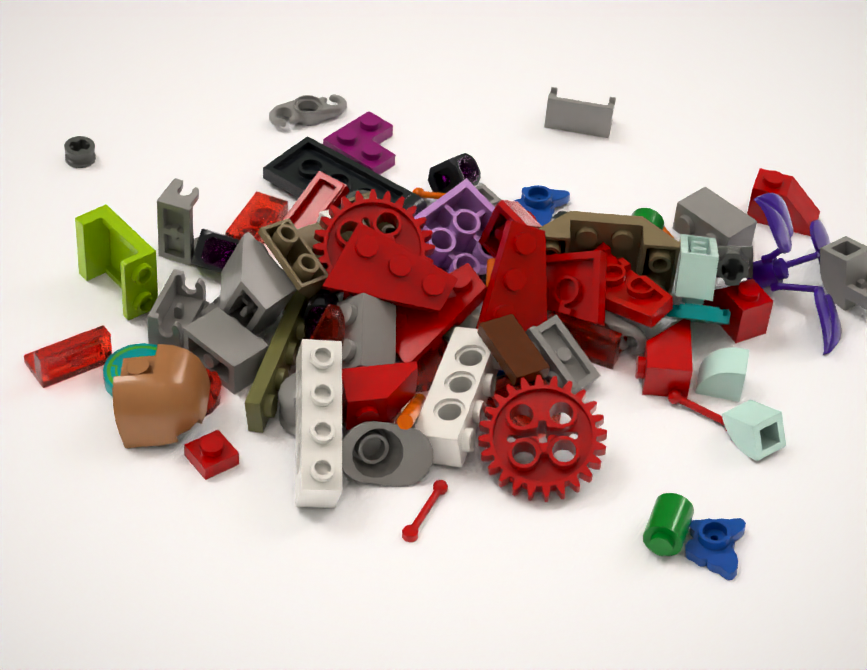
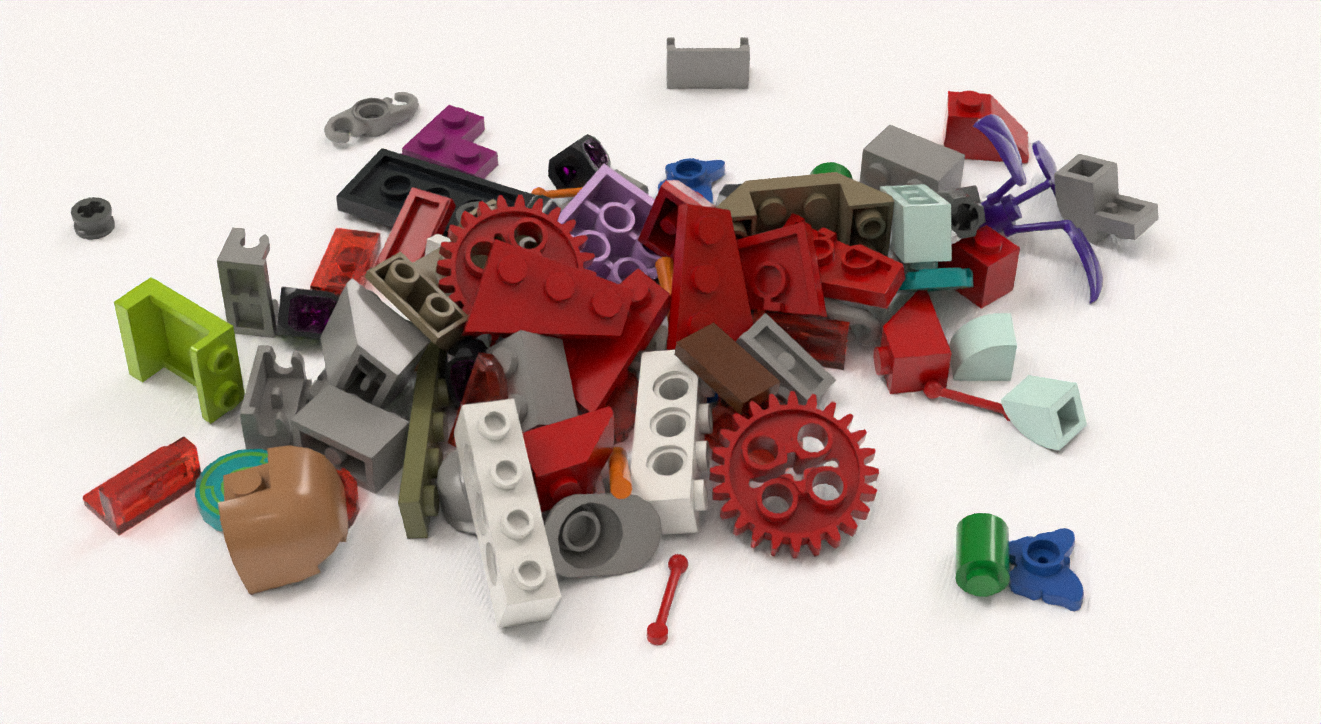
camera: 10 degrees left, 0 degrees up
(211, 454) = (368, 580): red plate -> none

